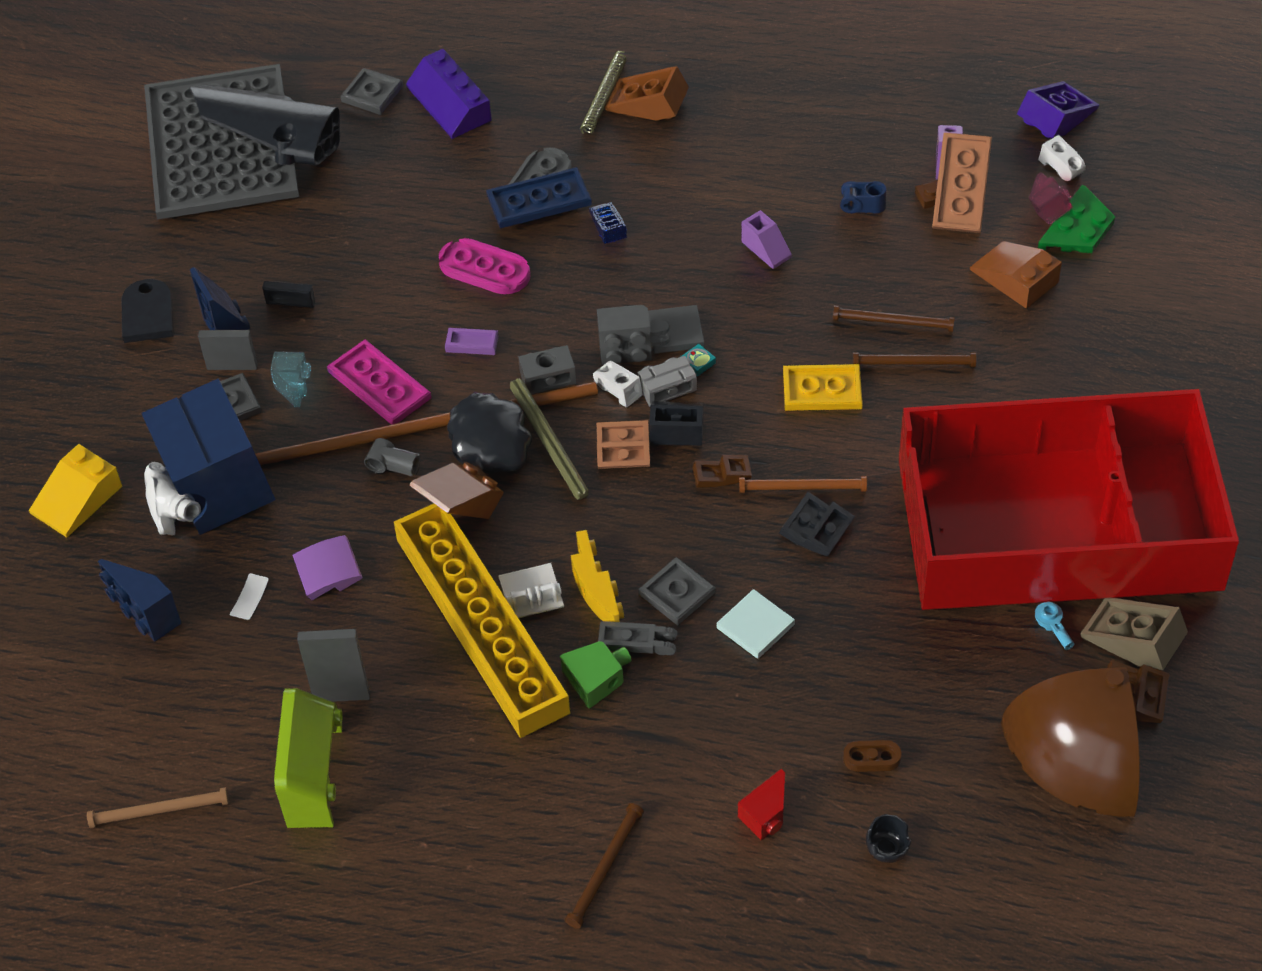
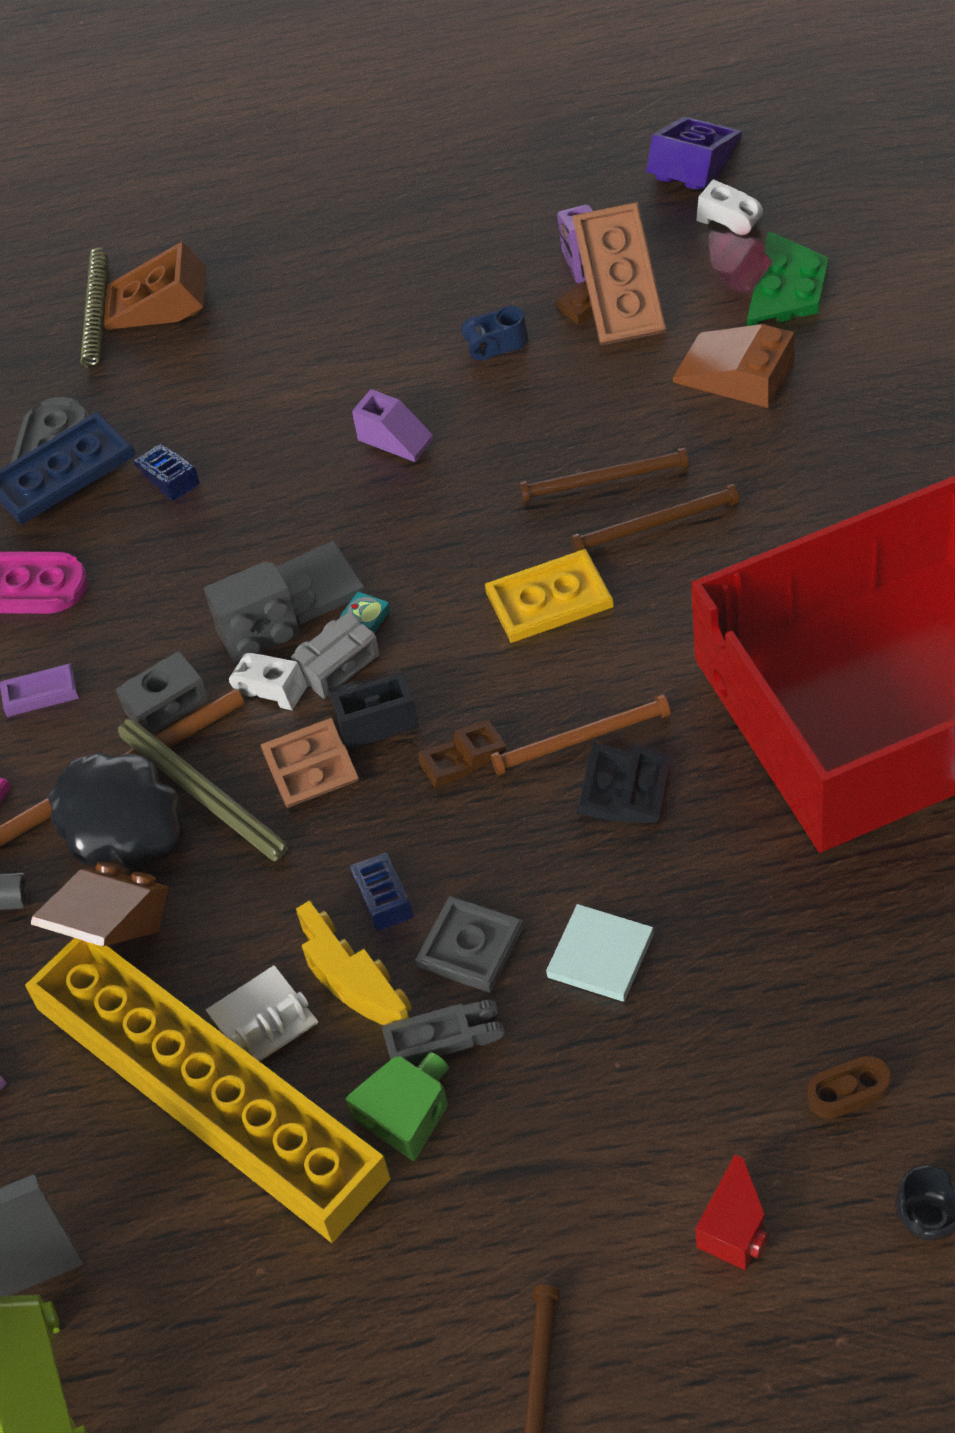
camera: 15 degrees left, 0 degrees up
(635, 555) = (390, 912): none -> clear blue slope

